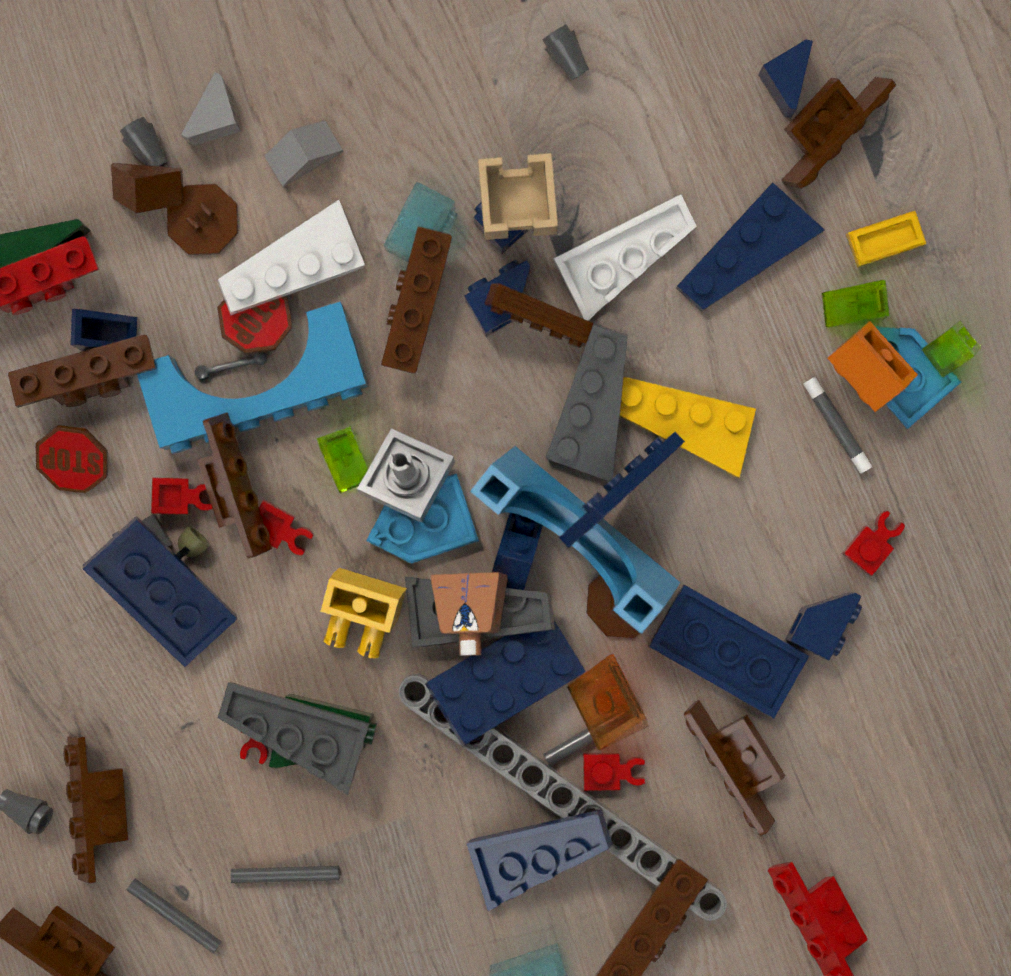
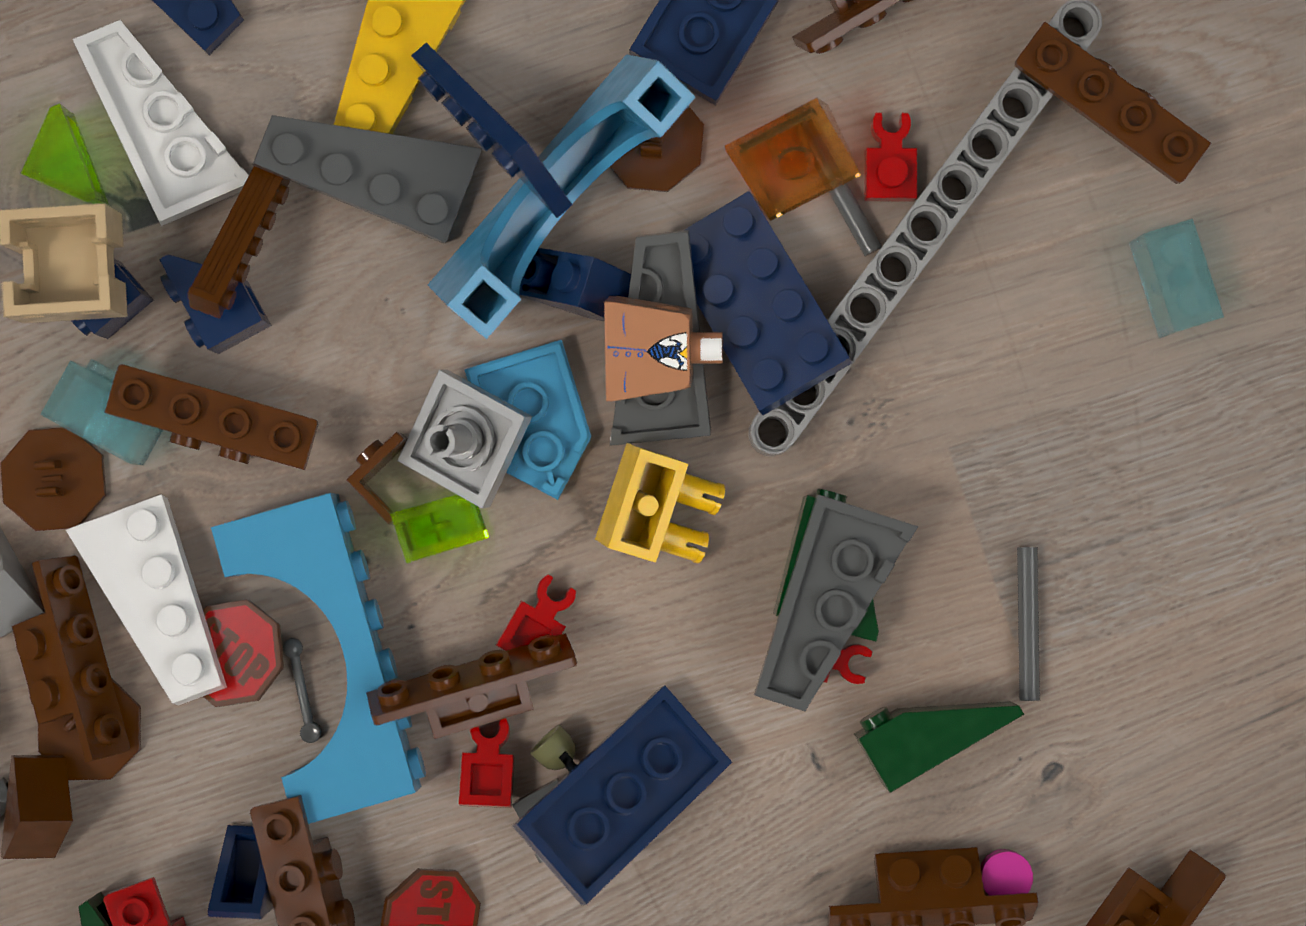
camera: 90 degrees left, 0 degrees up
(110, 860) = (1006, 873): none -> dark pink tile
(173, 915) = (1085, 783): dark grey bar -> none
(203, 800) = (920, 738): none -> dark green slope
(246, 204) = (67, 661): none -> reddish brown bracket
(374, 188) = (53, 479): none -> reddish brown piece
(390, 409) = (371, 462): none -> reddish brown bracket
(531, 855) = (1007, 276): wing -> none
(595, 190) = (63, 160): none -> clear neon green slope

